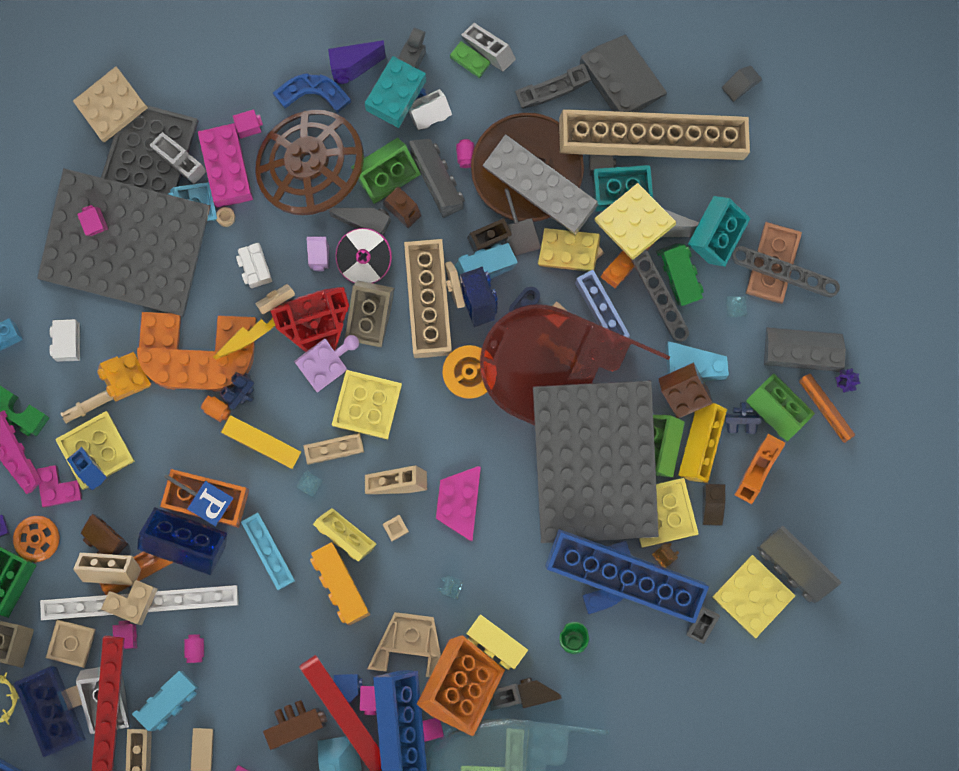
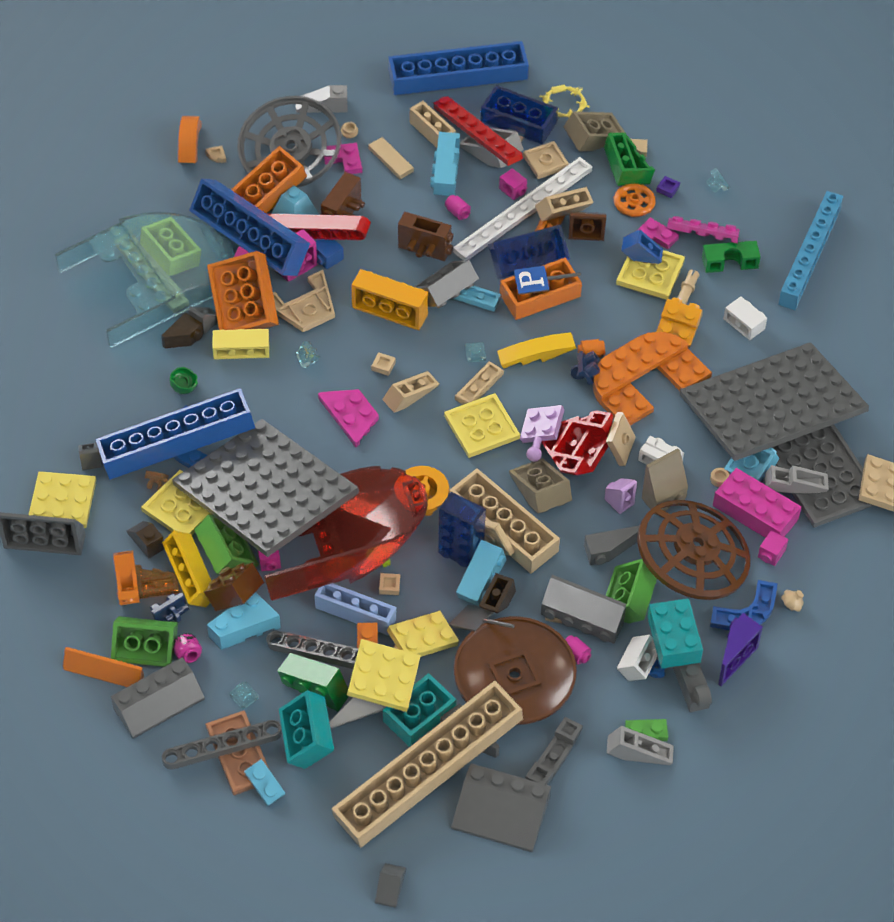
camera: 140 degrees right, 25 degrees down
(92, 220) = (806, 384): dark pink brick -> none
(135, 606) = (525, 195): tan brick -> none
(244, 338) = (616, 390): yellow slope -> none
(255, 629) = (425, 236): none -> reddish brown piece
(273, 72) = (793, 600): none -> tan piece
(280, 231) = (665, 480): none -> dark tan slope
(280, 564) = (448, 282): none -> slope
(344, 534) = (416, 330): light yellow plate -> none
(364, 241) = (584, 517): piece -> none
(401, 206) = (589, 570): reddish brown torso -> none
(522, 299) = (424, 576): dark blue plate -> none
(540, 184) = (488, 650): light grey brick -> none
(735, 455) = (155, 582): none -> clear orange wing
(752, 375) = (188, 647): none -> dark pink head
(775, 220) = (264, 782): none -> medium azure plate
(847, 380) = (100, 697): dark purple gear -> none

